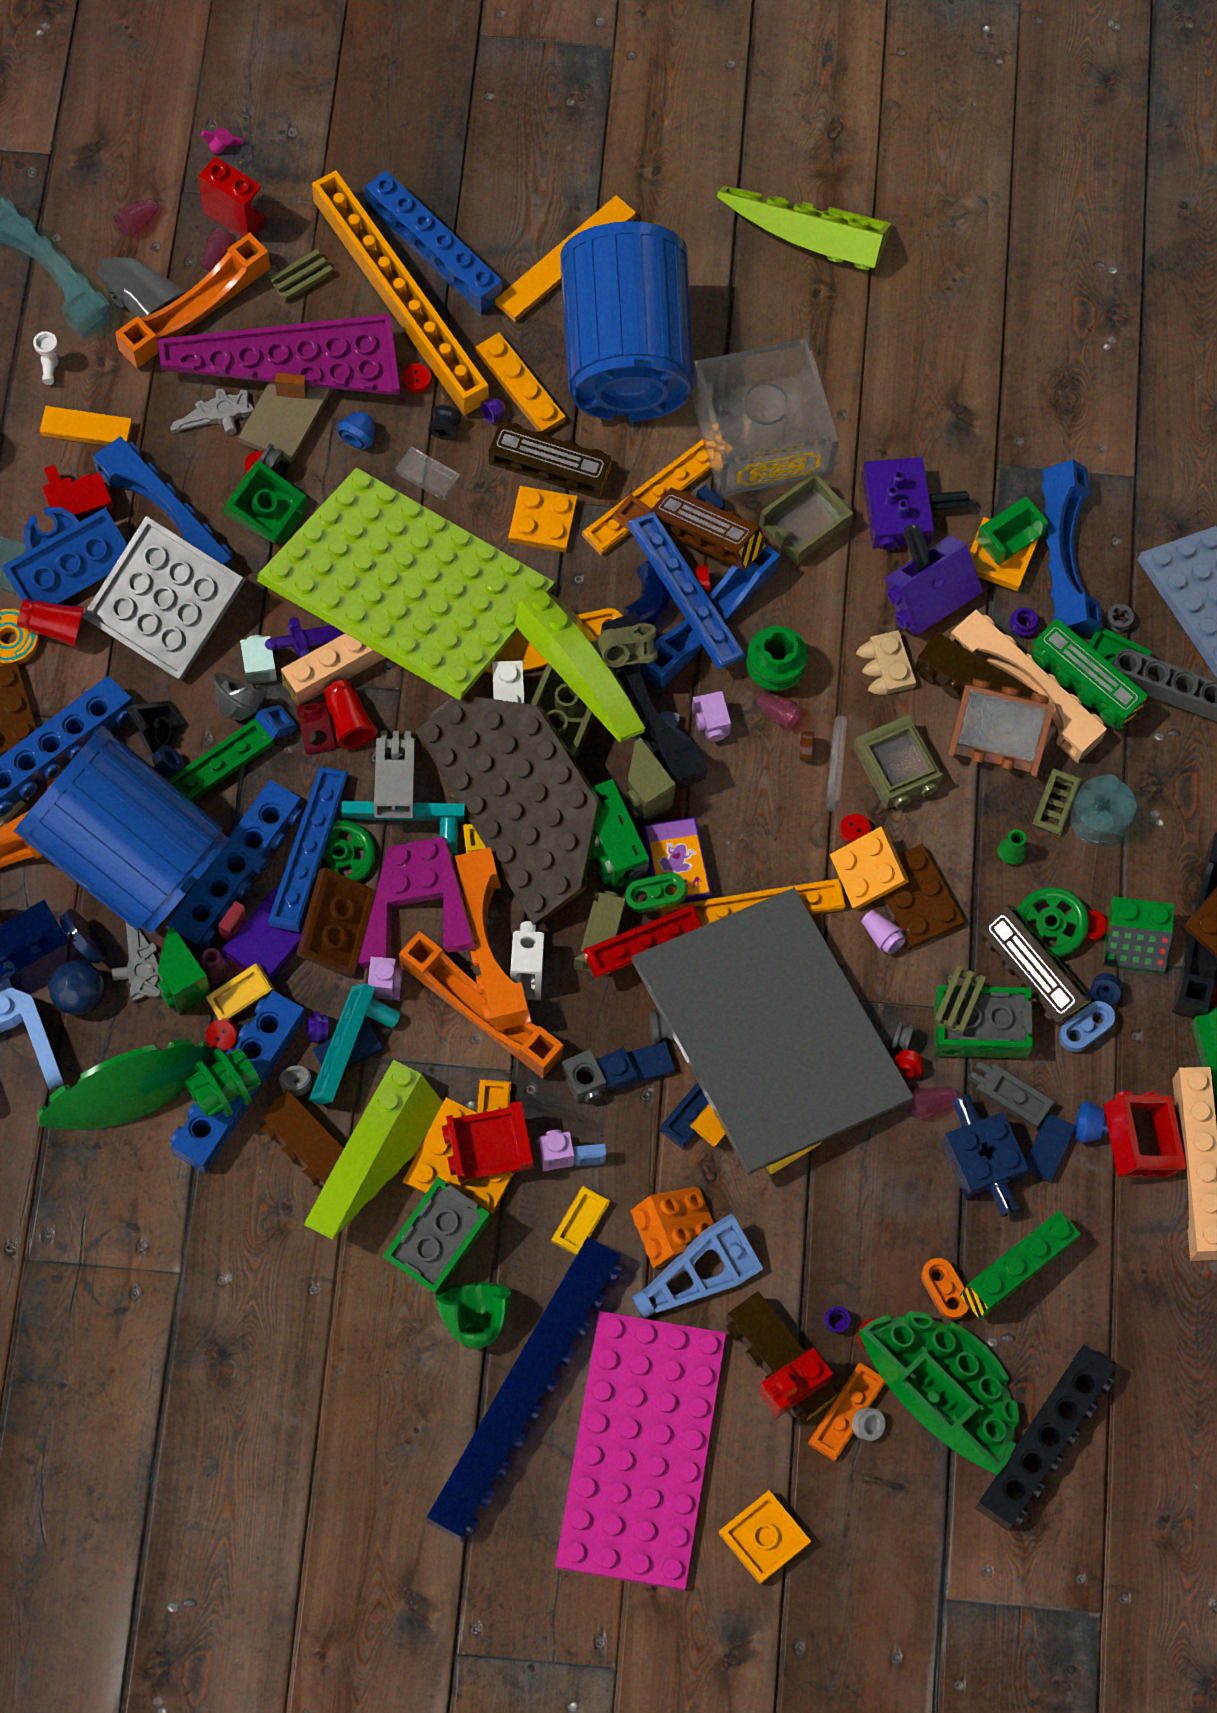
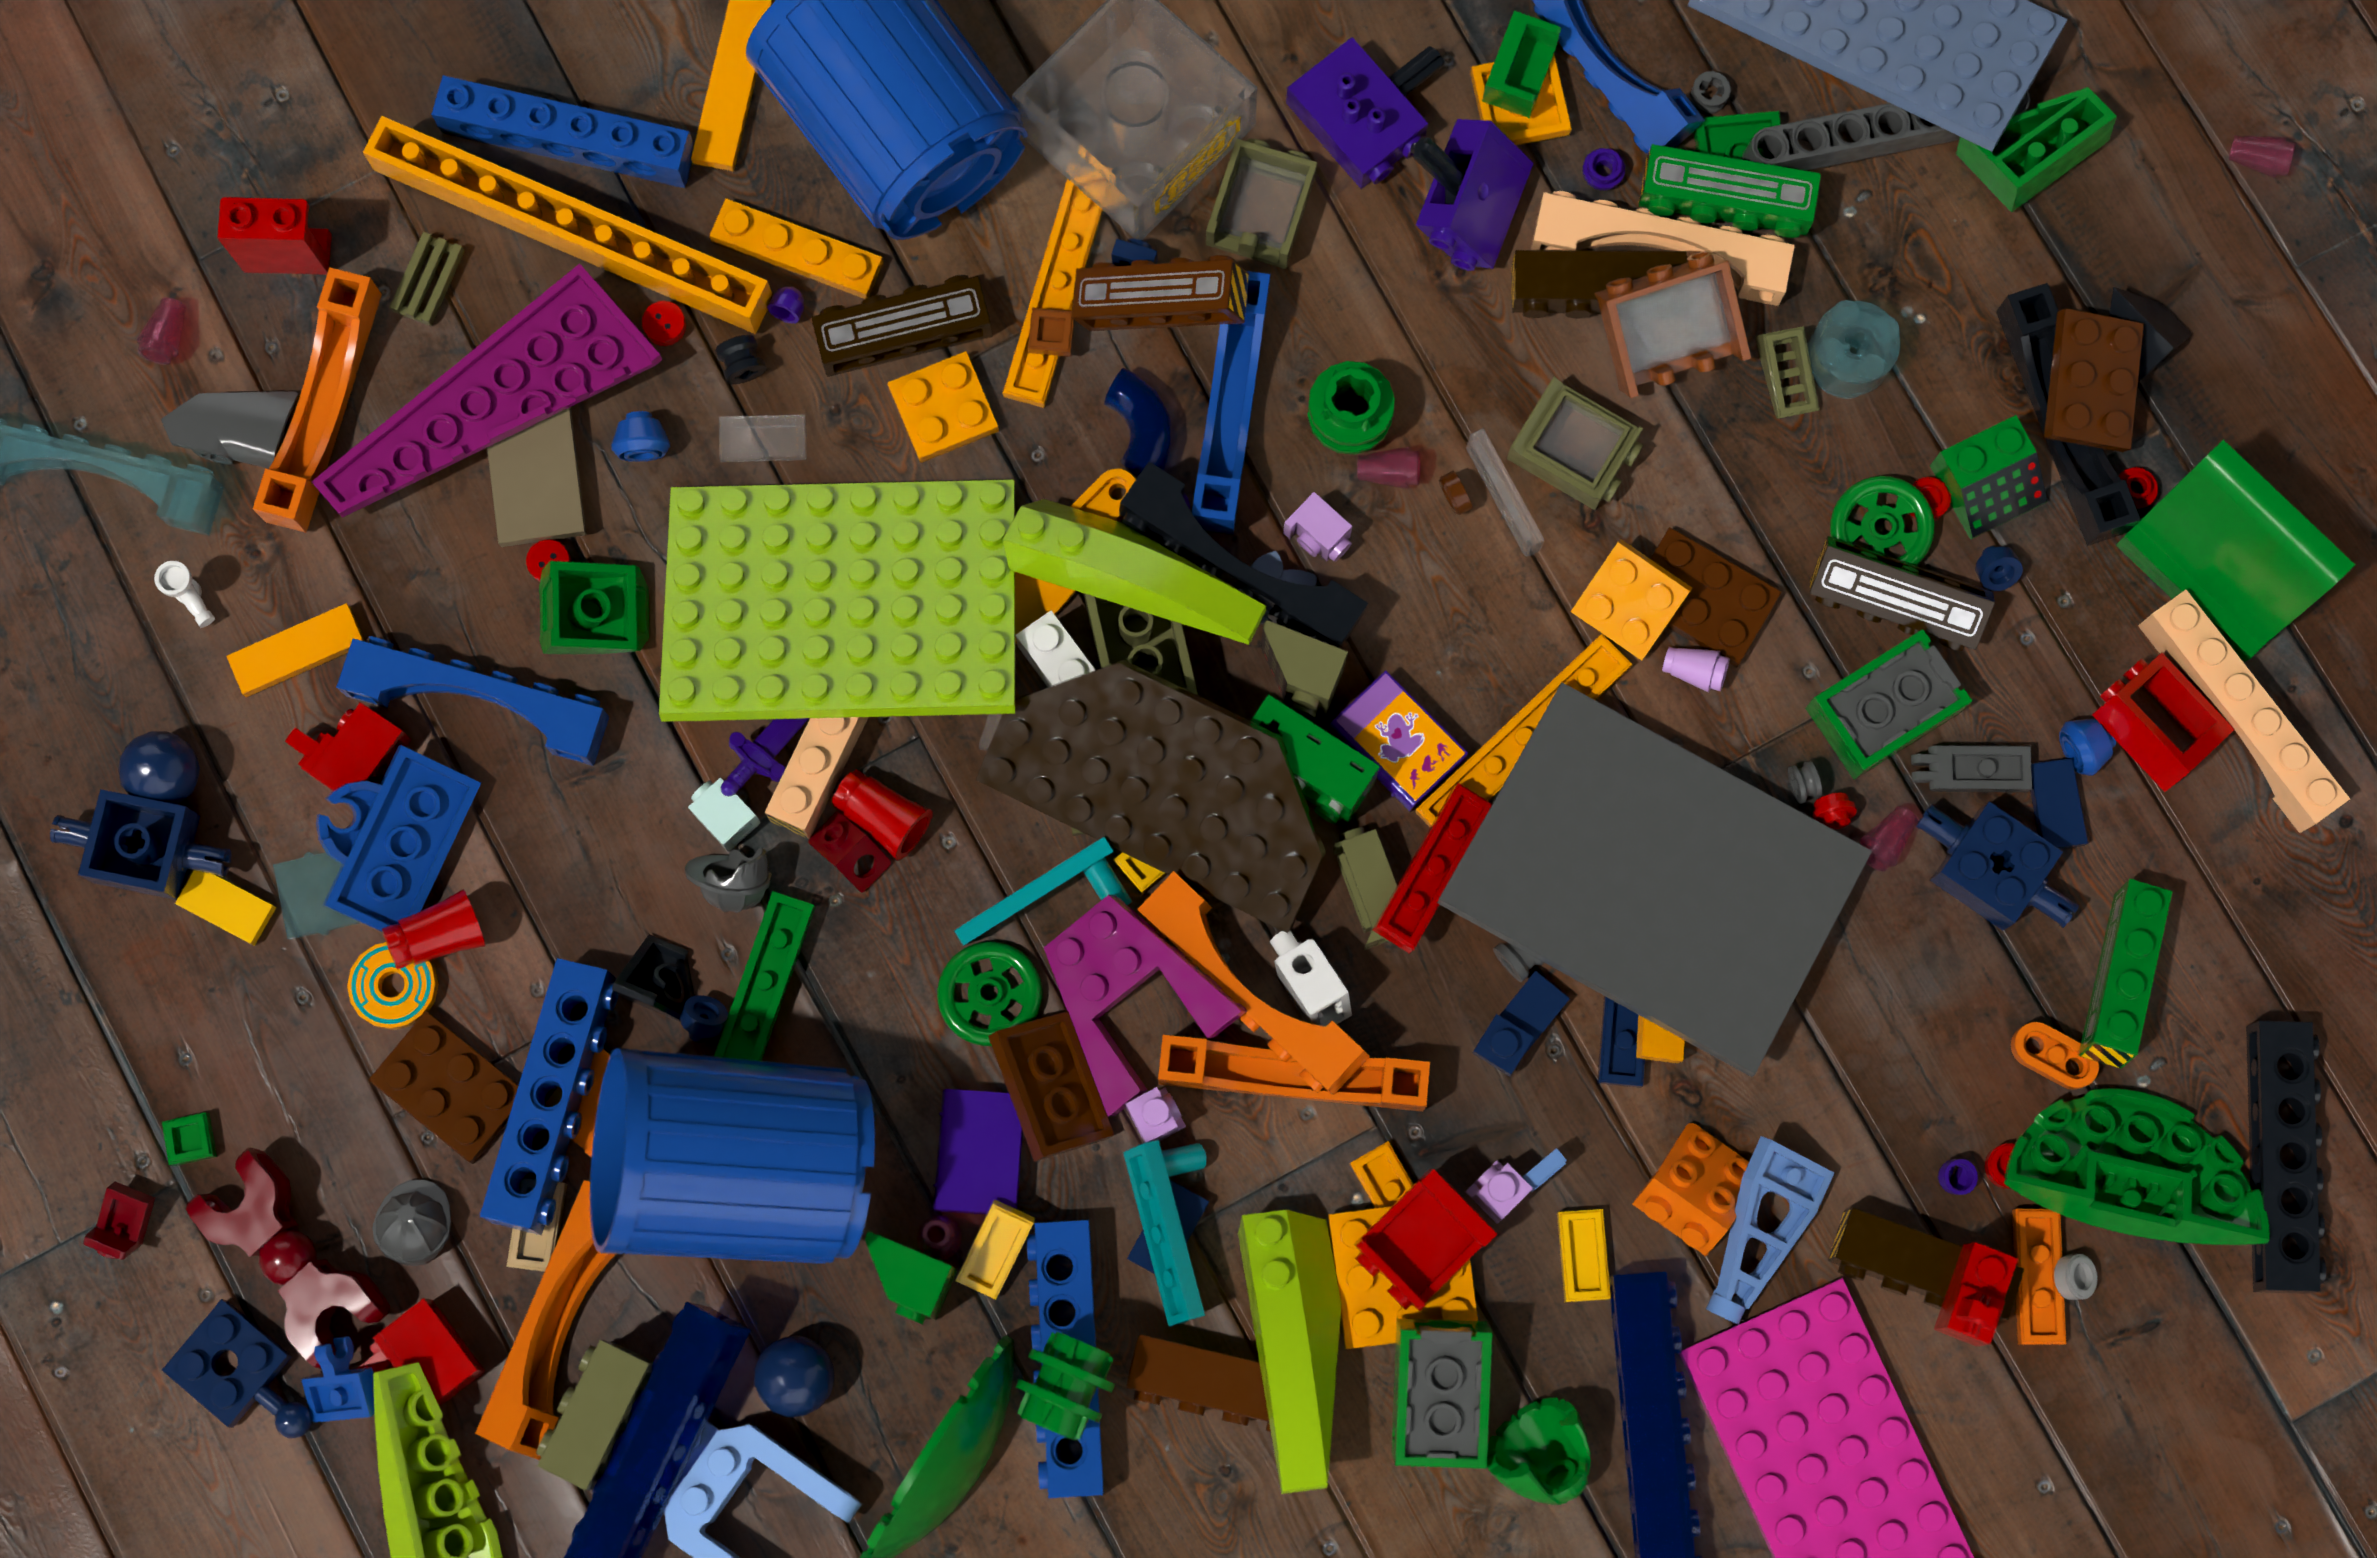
camera: 30 degrees left, 10 degrees up
(85, 937) = (761, 1305): dark blue tile -> none
(141, 968) = (852, 1297): light grey piece -> none
(164, 598) = (555, 813): light grey plate -> none
(216, 248) = (298, 311): clear pink cone -> none
(219, 410) = (448, 519): light grey piece -> none
(220, 140) = (200, 163): dark pink piece -> none
(222, 1034) = (1007, 1313): red tile -> none
(232, 920) = (922, 1165): coral tile -> none
(271, 457) = (560, 545): dark grey bush -> none
(272, 801) = (865, 982): blue brick -> none
(276, 721) = (799, 878): blue tile -> none
(290, 385) = (520, 436): dark orange tile -> none
(296, 1080) = (1135, 1311): light grey tile -> none
(308, 849) = (953, 1015): blue tile -> none
(317, 1026) = (1115, 1228): dark purple plate -> none
(394, 777) = (997, 858): light grey hinge -> none
(584, 1064) = (1452, 1080): dark grey brick -> none
(630, 645) = (1174, 515): olive piece -> none
(656, 891) = (1406, 795): green plate -> none
(686, 590) = (1184, 390): blue tile -> none
(703, 577) = (1191, 361): red tile -> none
(764, 1537) = (2048, 1491): light orange plate -> none
(854, 827) = (1577, 560): red tile -> none
(889, 663) = (1478, 324): tan plate -> none
(969, 977) = (1871, 698): olive tile -> none
(1013, 847) = (1774, 470): green cone -> none
(1085, 1027) = (2006, 631): medium blue plate -> none

